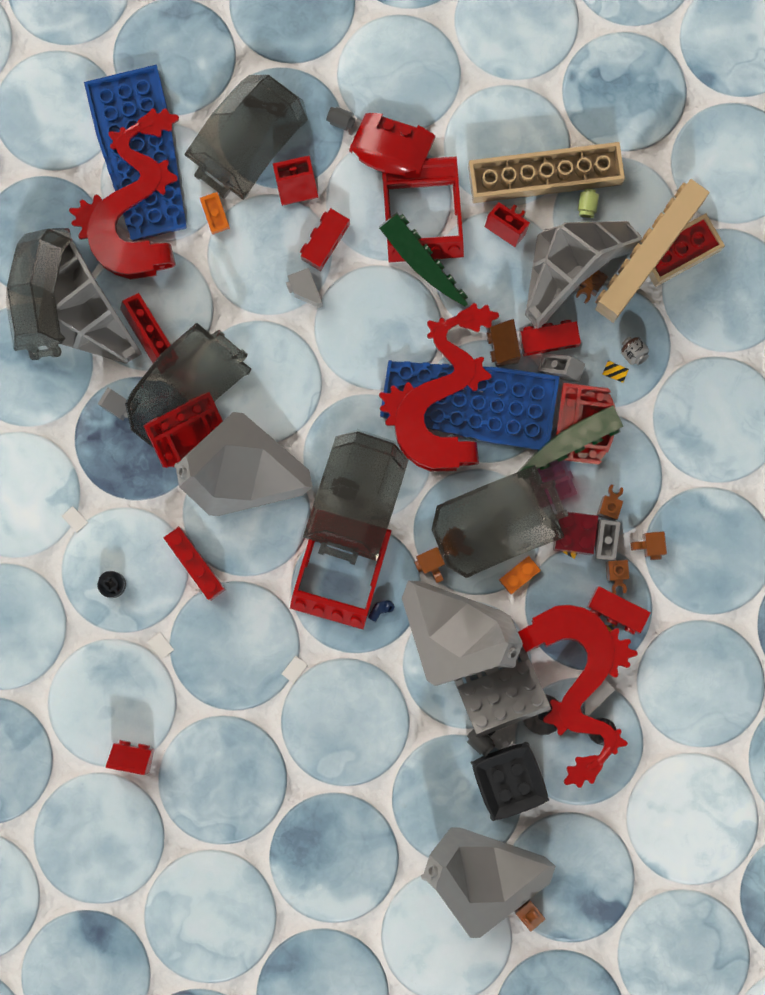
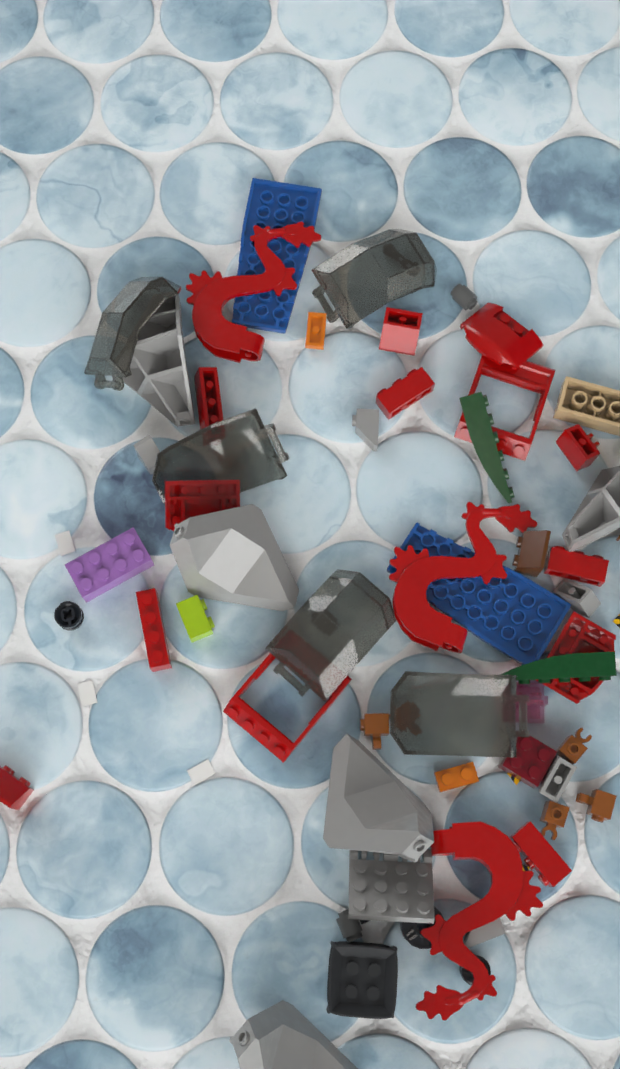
camera: 20 degrees right, 10 degrees down
(126, 522) = (109, 565): none -> medium lavender brick
(226, 536) = (194, 618): none -> lime brick
(379, 608) = (308, 749): dark blue arm -> none

